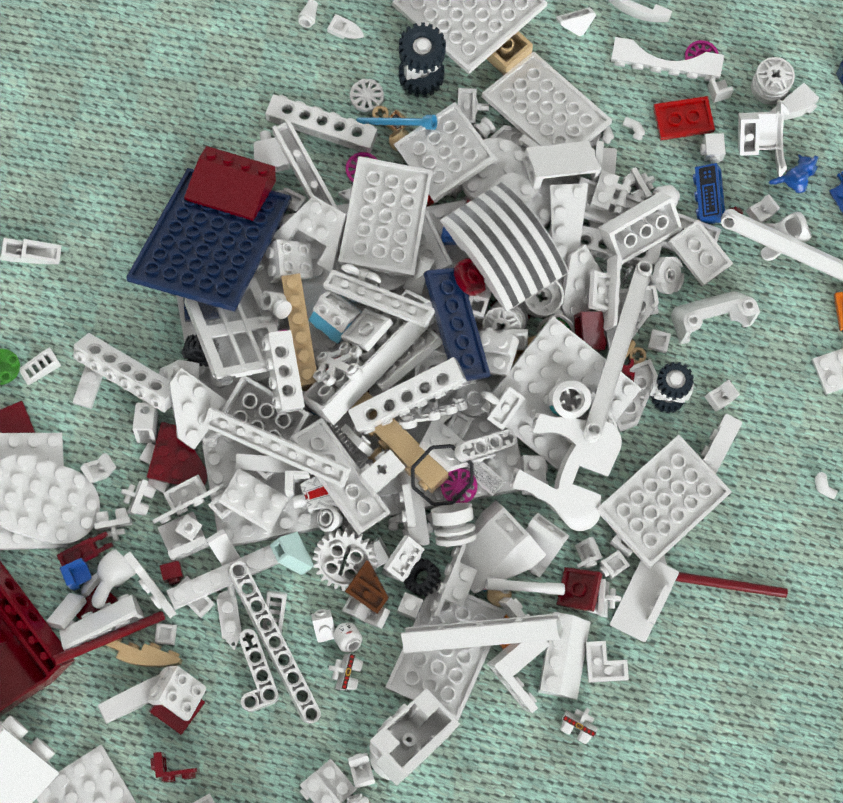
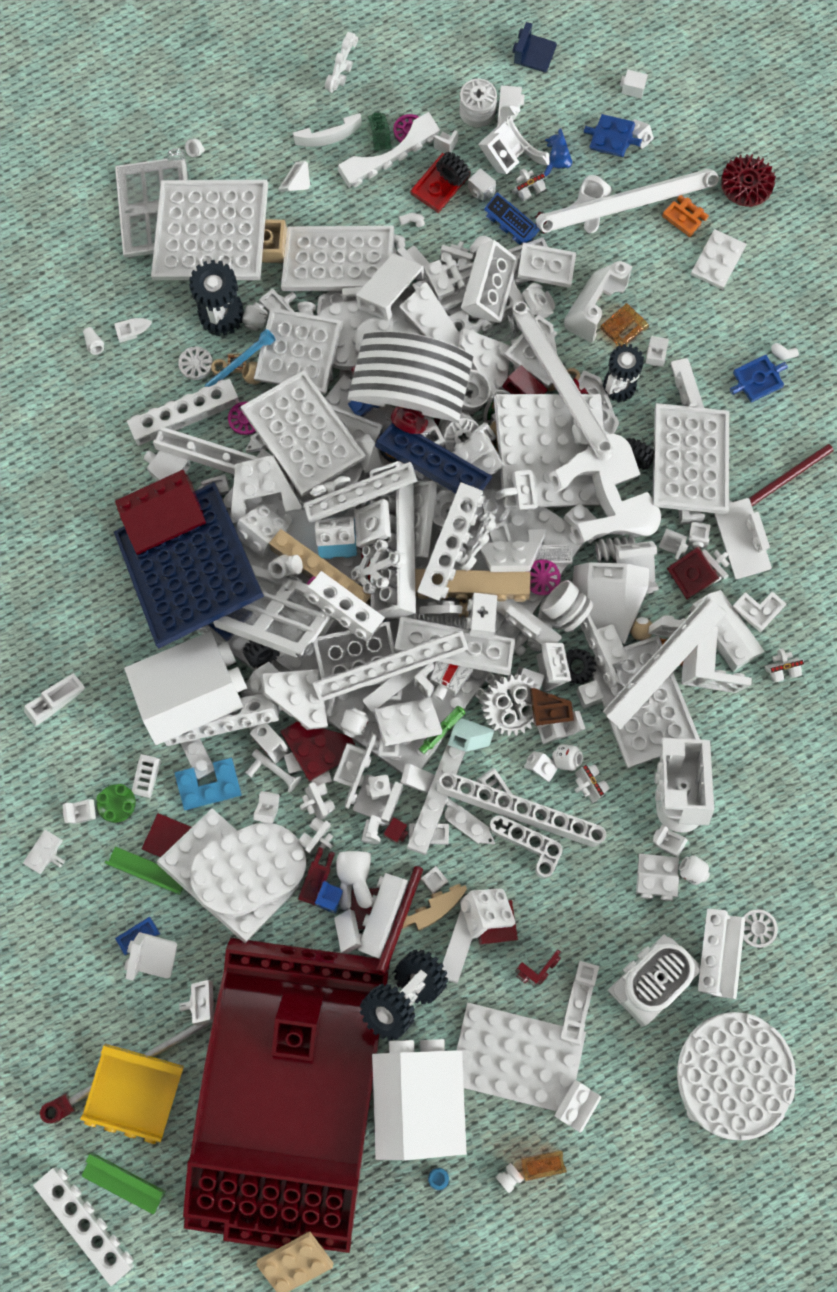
camera: 40 degrees left, 0 degrees up
(30, 695) = (392, 1011): none -> black plate
(84, 426) = (223, 789): none -> dark azure plate
(122, 327) = (185, 687): none -> white brick
(134, 466) = (261, 759): none -> white piece
(150, 586) = (390, 854): white wing -> none
(154, 554) = (370, 830): none -> white piece
(216, 464) = (354, 722): none -> white head
(277, 529) = (446, 725): none -> bright green piece
(329, 519) = (475, 685): white cone -> none
(422, 494) = (503, 578): black piece -> none
(442, 98) = (255, 316): none -> white head
(486, 445) = (536, 529): white beam -> none
(502, 584) = (671, 592): white piece -> none
(530, 510) = (608, 549): none -> white piece
(569, 399) = (564, 443): white hat -> none
(605, 291) = (511, 348): white bracket -> none
(627, 460) = (642, 453): none -> black tyre
(659, 341) = (576, 353): white plate -> none
(675, 37) = (380, 131): none -> clear green bracket
(699, 115) = (452, 168): none -> black tyre
(717, 348) = (621, 321): none -> clear orange plate
(742, 178) = (522, 189): none -> white hips
(763, 210) = (558, 197): white bracket -> none
(782, 488) = (758, 378): none -> blue plate

